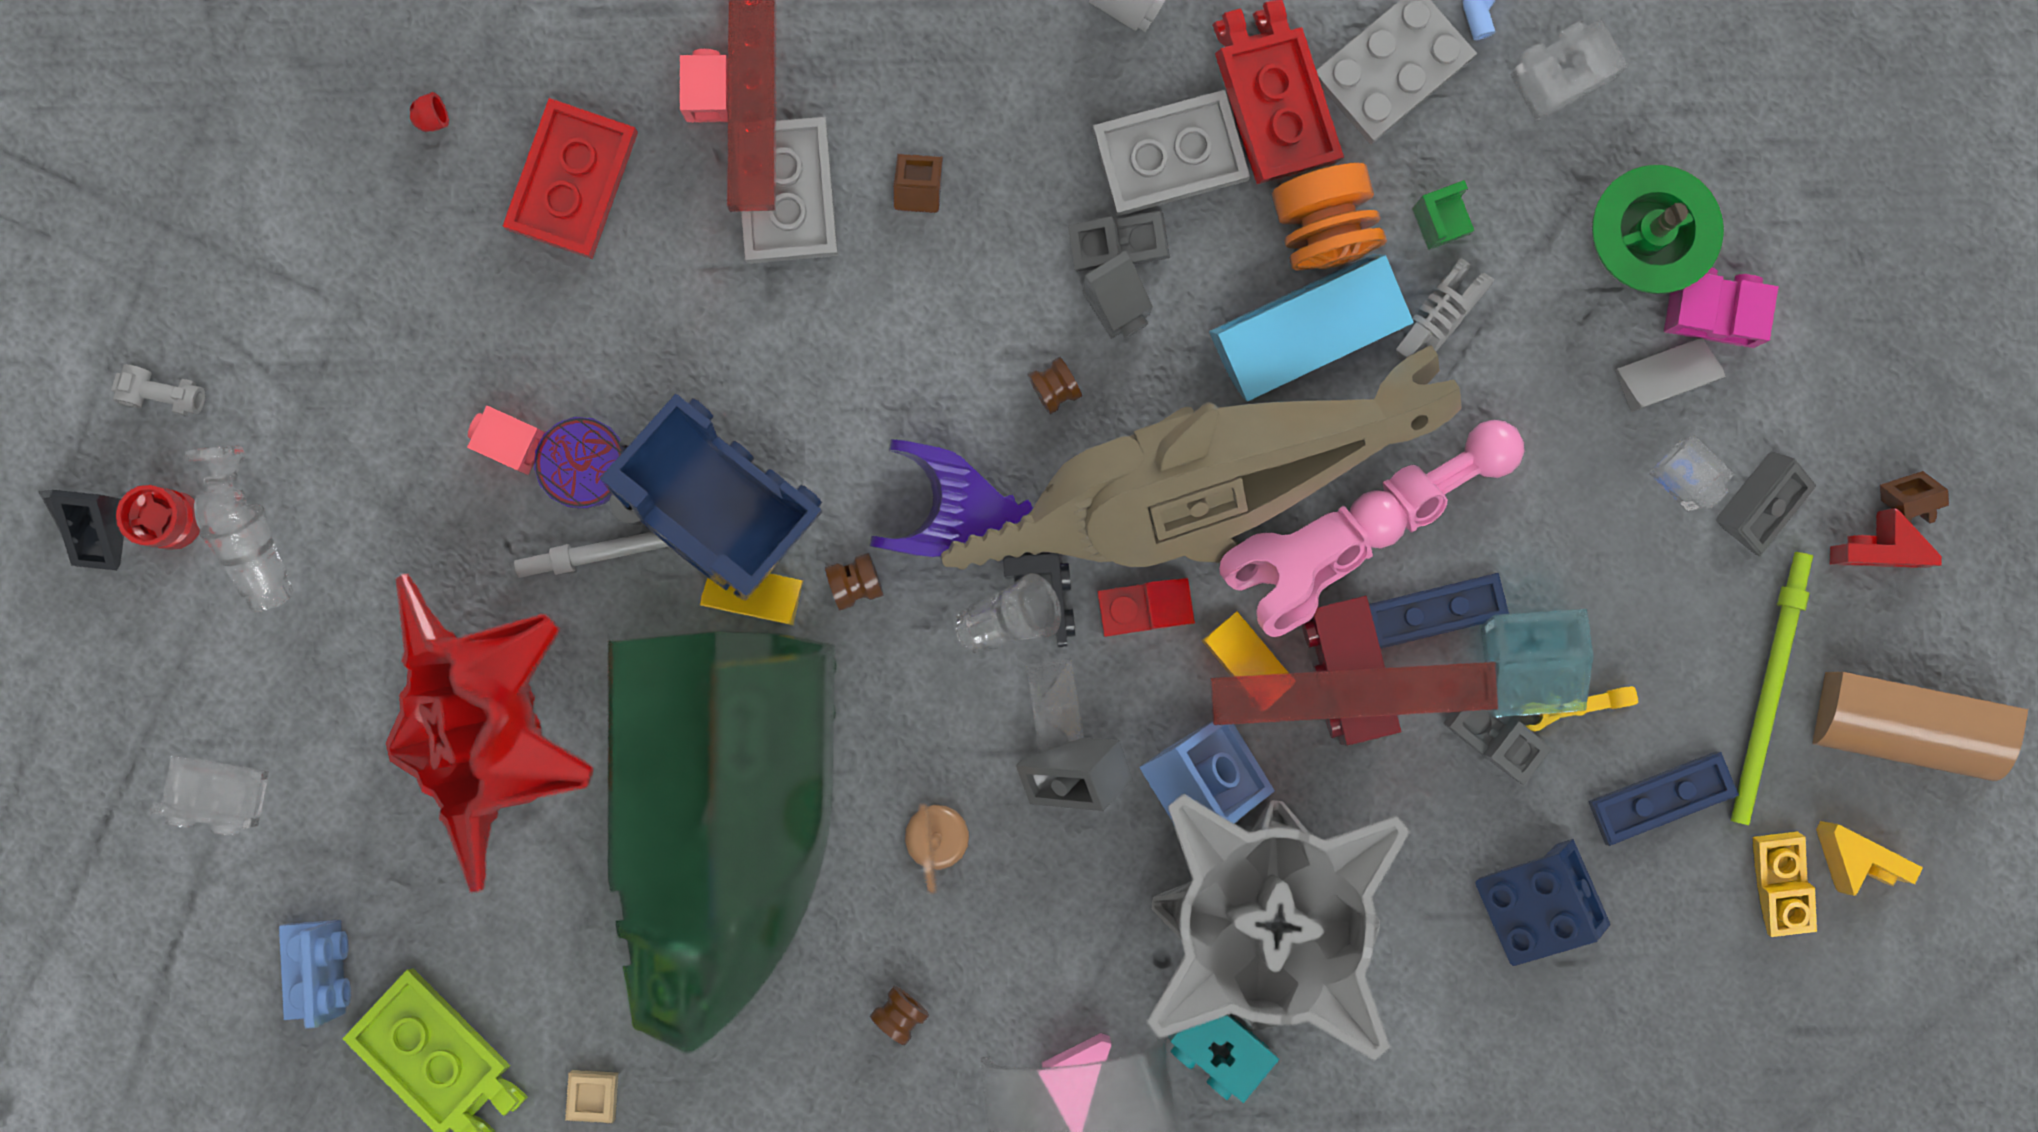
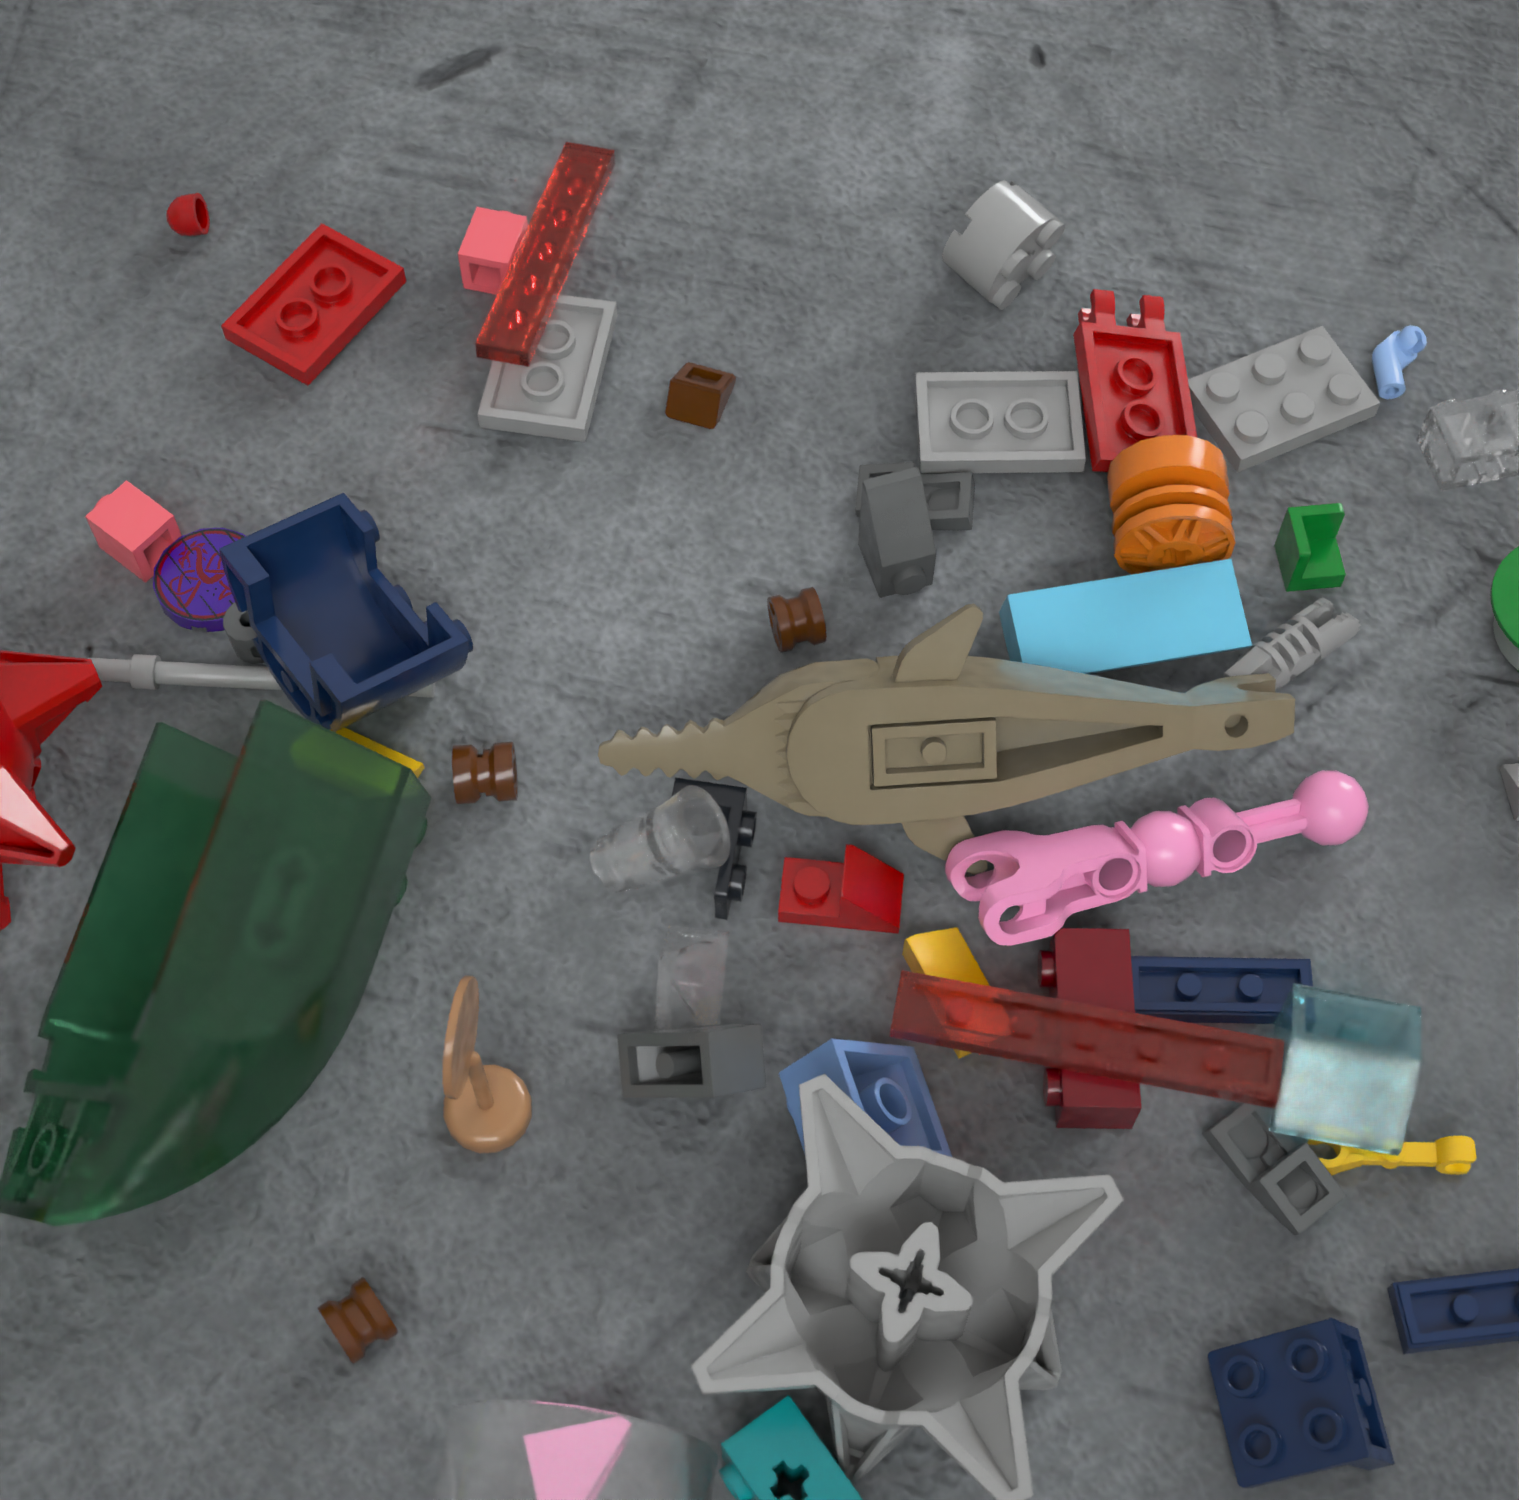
camera: 15 degrees right, 25 degrees down
(960, 506) = (644, 698): dark purple animal -> none

